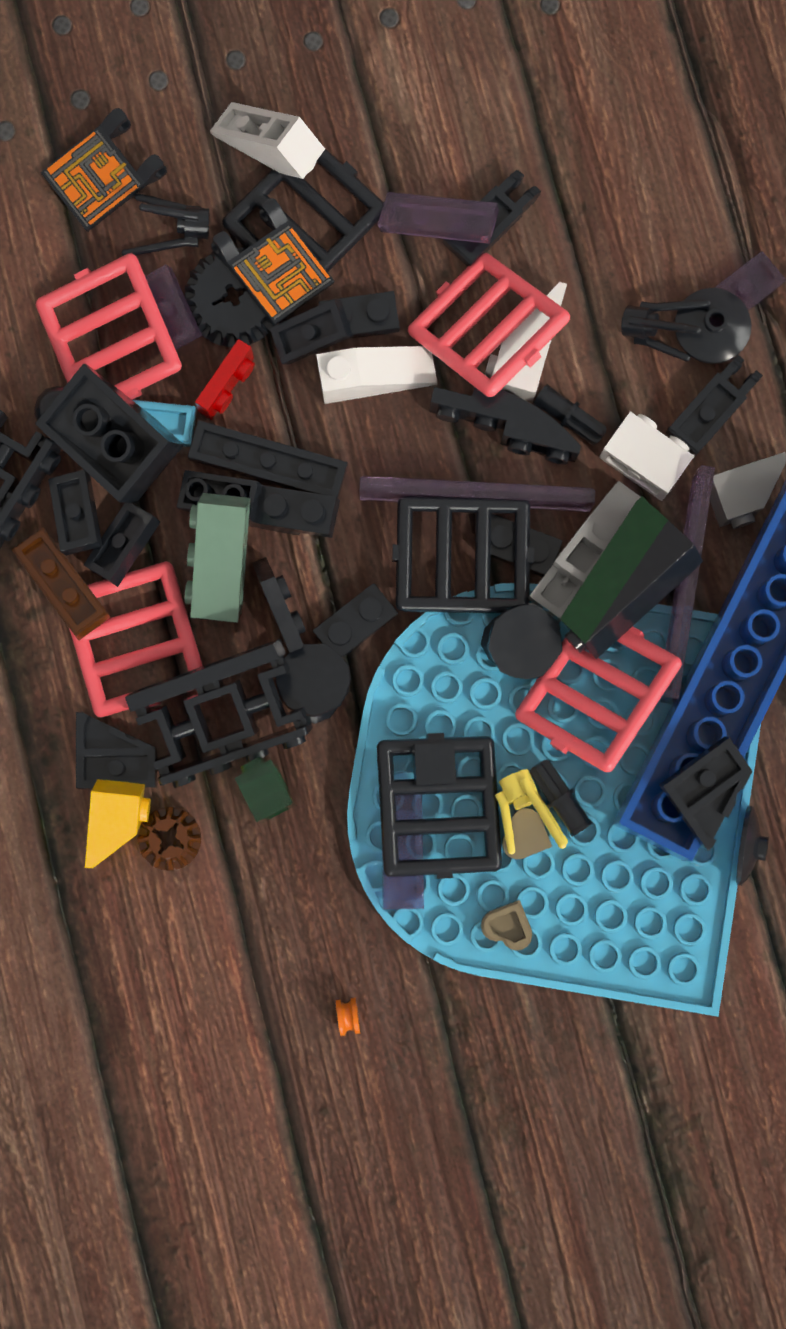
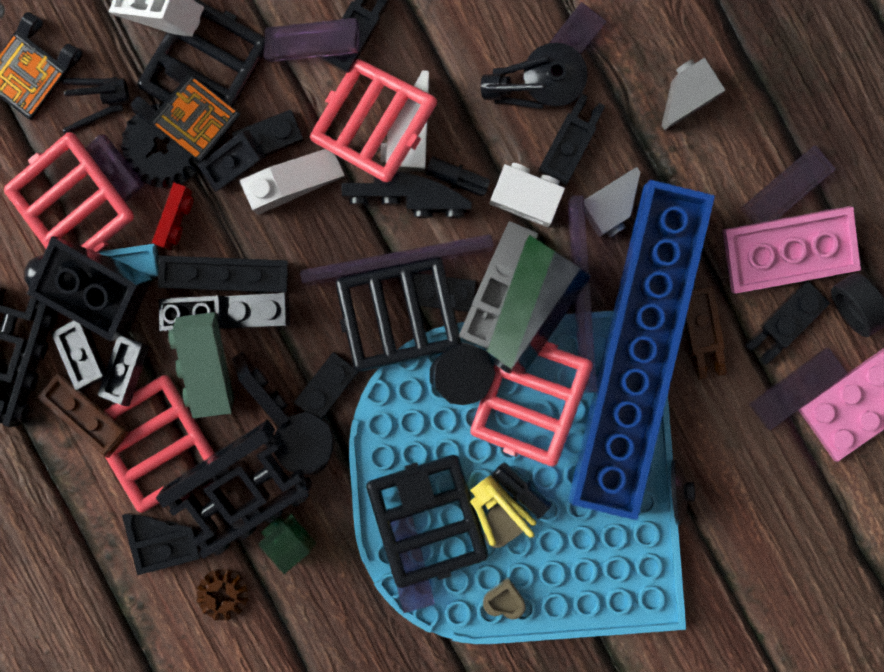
camera: 10 degrees left, 5 degrees up
(114, 817) = (172, 592): yellow slope -> none
(708, 789) = (636, 461): black wing -> none

